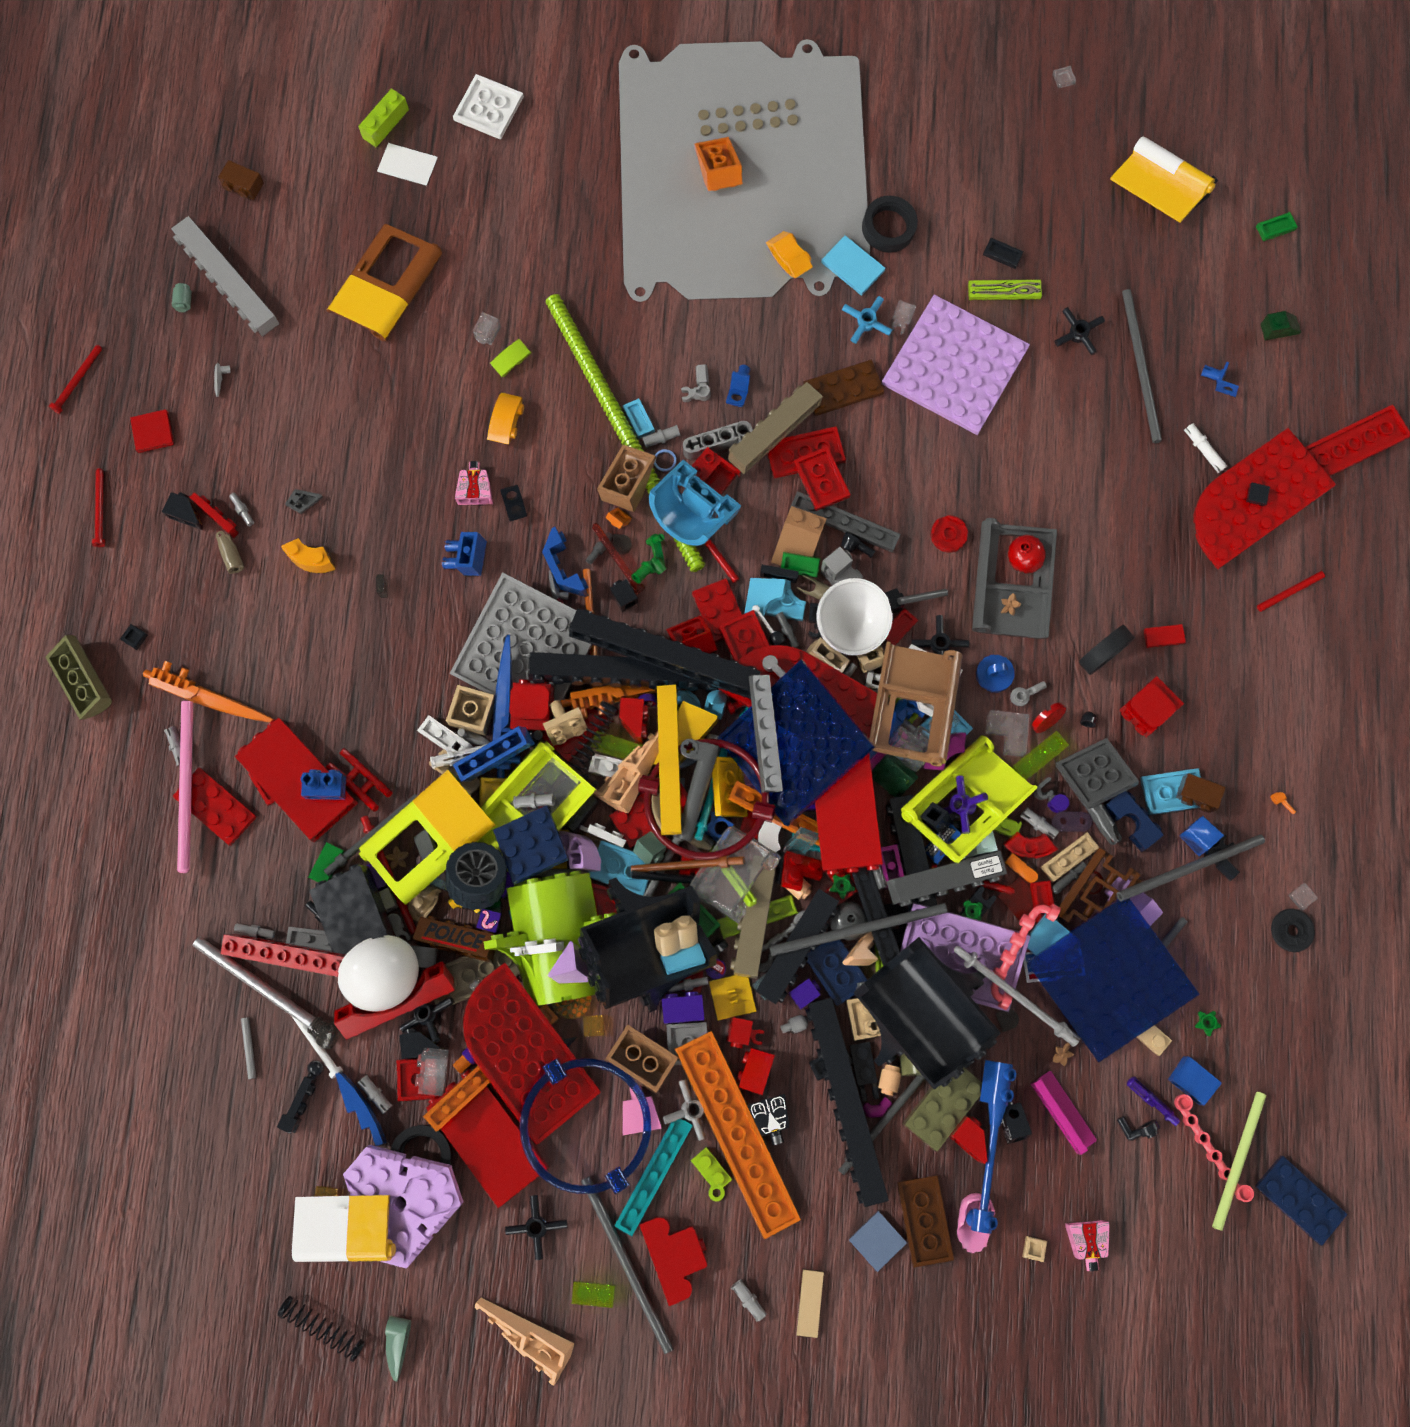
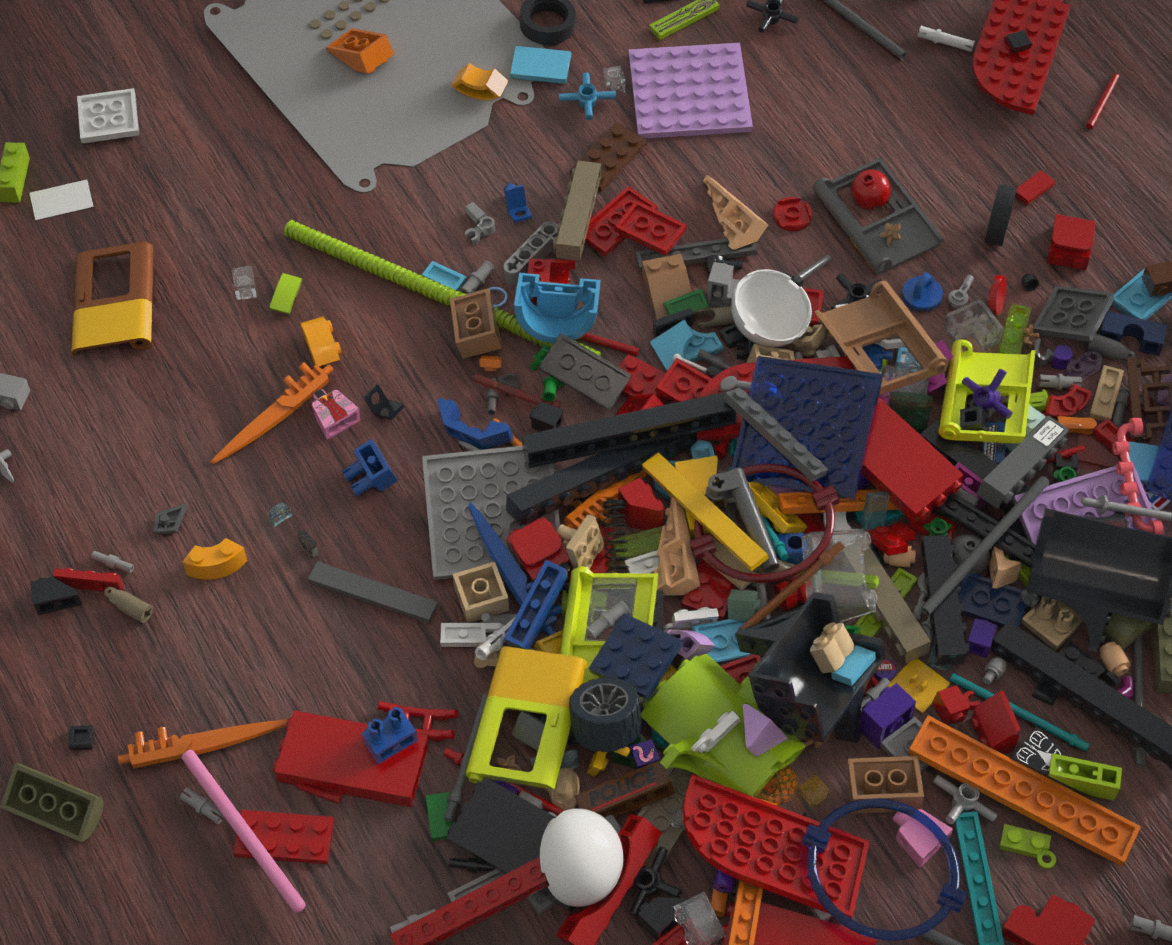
camera: 35 degrees left, 20 degrees down
(380, 547) = (279, 514): none -> clear light blue tile
(402, 655) = (373, 592): none -> dark grey tile
(455, 455) = (291, 400): none -> orange piece
(677, 575) = (585, 372): none -> black tile
(788, 1156) = (1086, 776): none -> lime slope
(808, 1117) = (1073, 740): none -> teal bar
(898, 518) = (738, 221): none -> light nougat wedge
(1048, 769) = (1030, 336): none -> medium nougat plant

